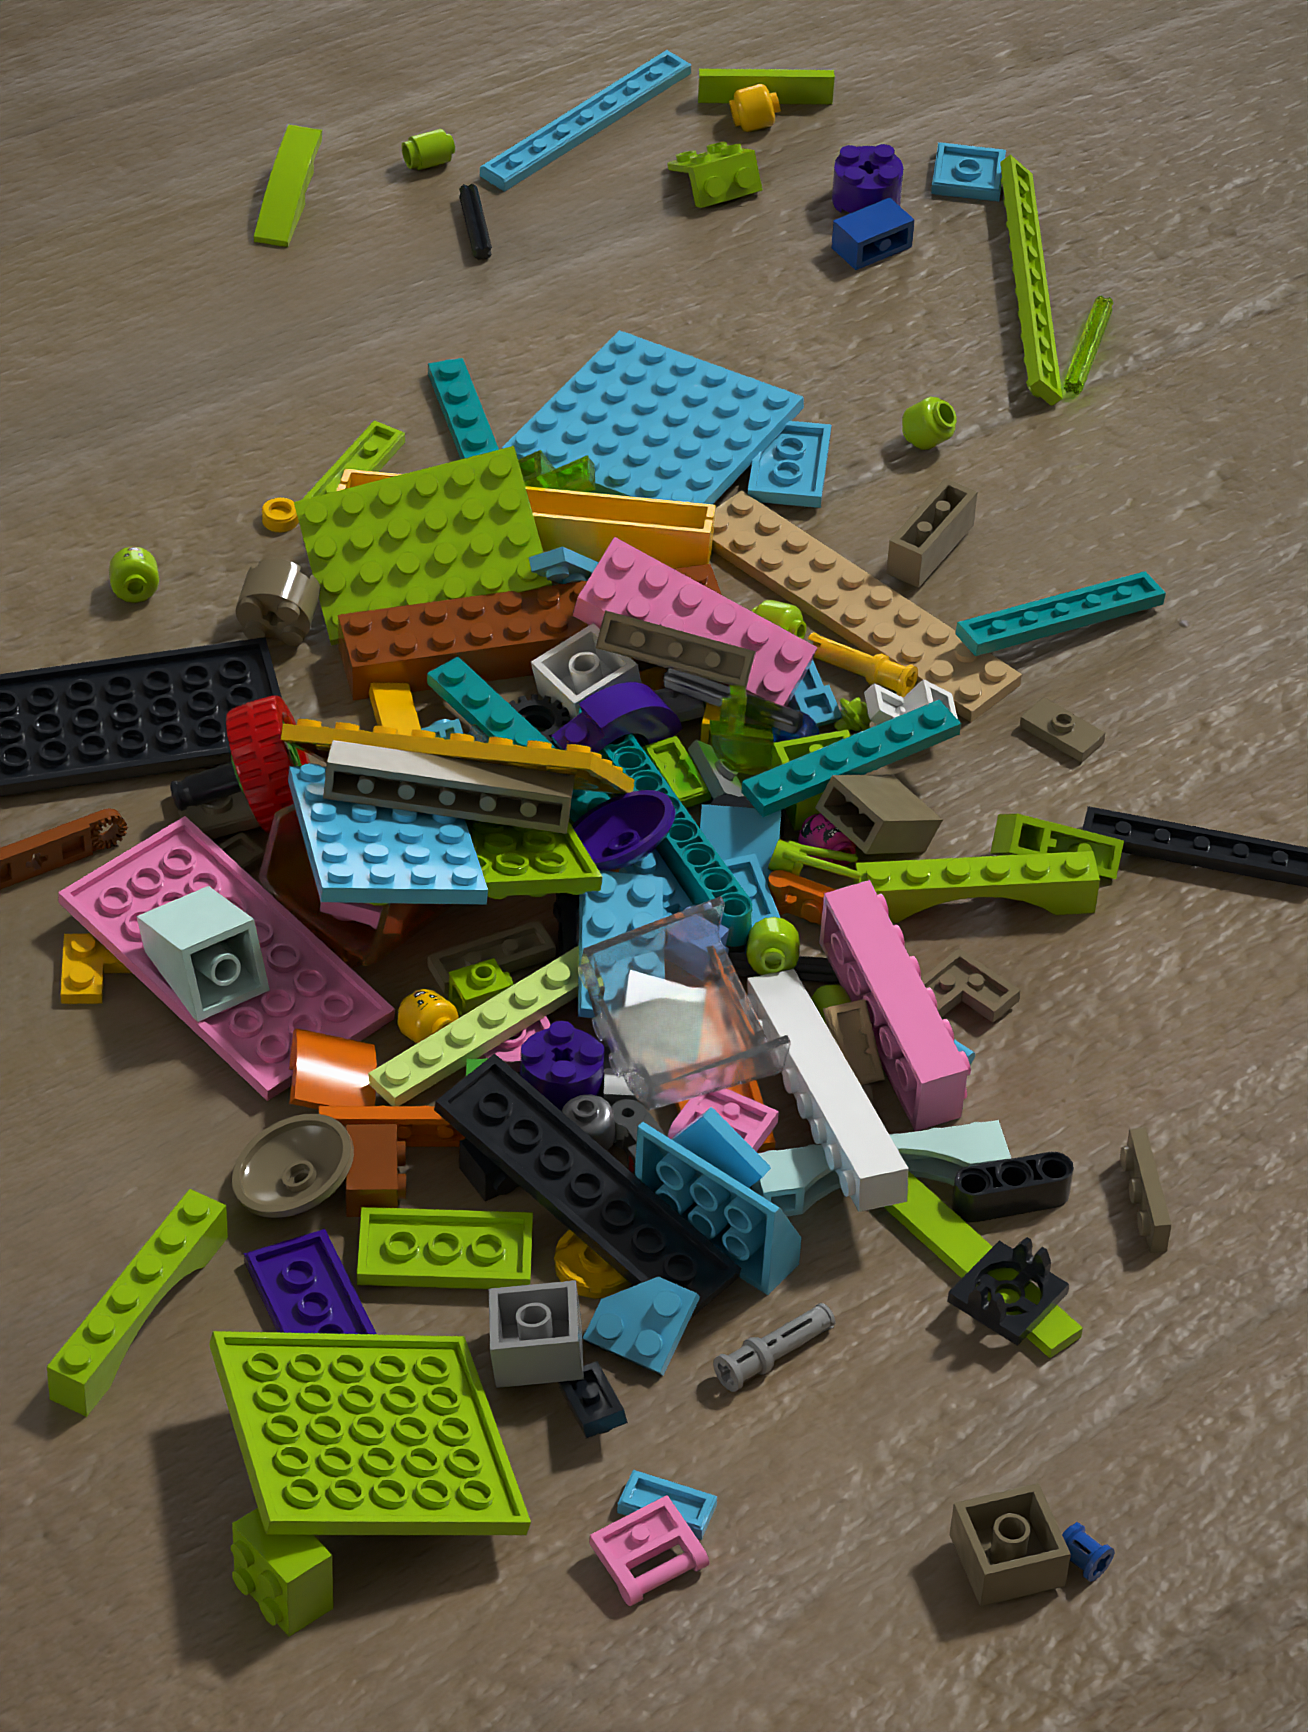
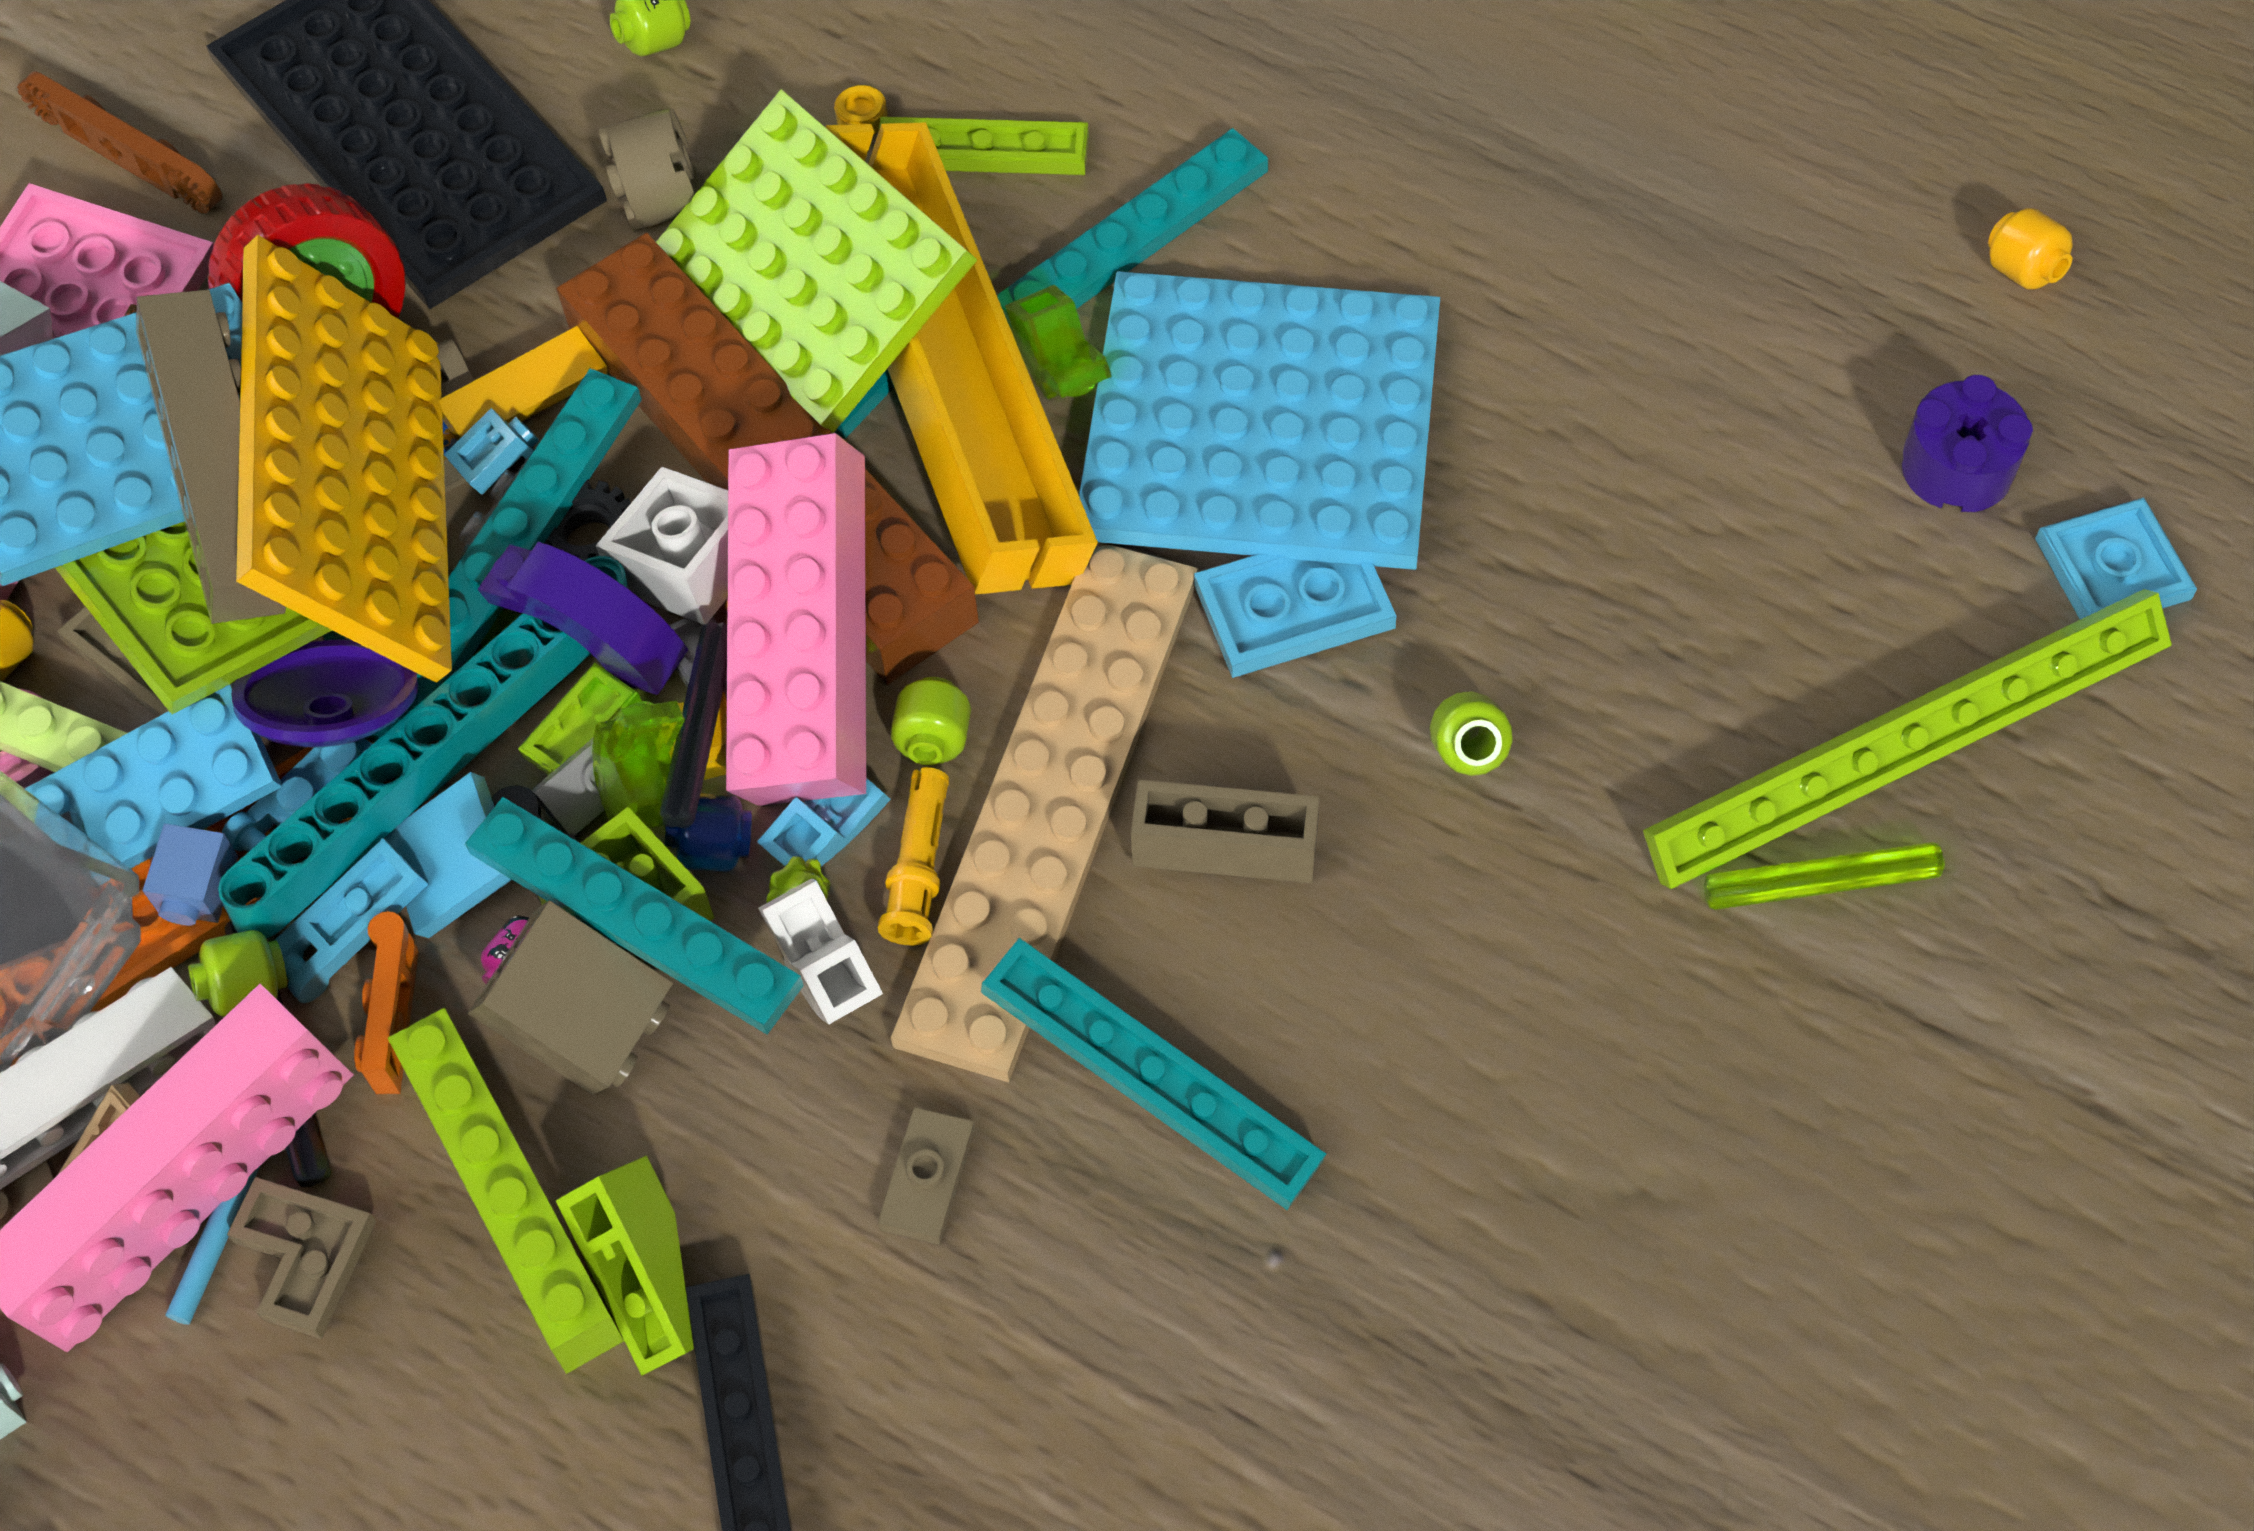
camera: 70 degrees right, 15 degrees up
(475, 221) = (1558, 58): black axle -> none
(476, 985) = (61, 672): lime brick -> none
(562, 565) = (828, 409): medium azure plate -> none
(585, 120) = (1871, 84): medium azure tile -> none
(675, 649) = (715, 610): dark tan tile -> none
(719, 173) = (1854, 265): lime bracket -> none
(790, 85) = (2095, 244): lime tile -> none
(792, 856) = (427, 926): lime plant -> none
(872, 233) = (1861, 498): blue brick -> none

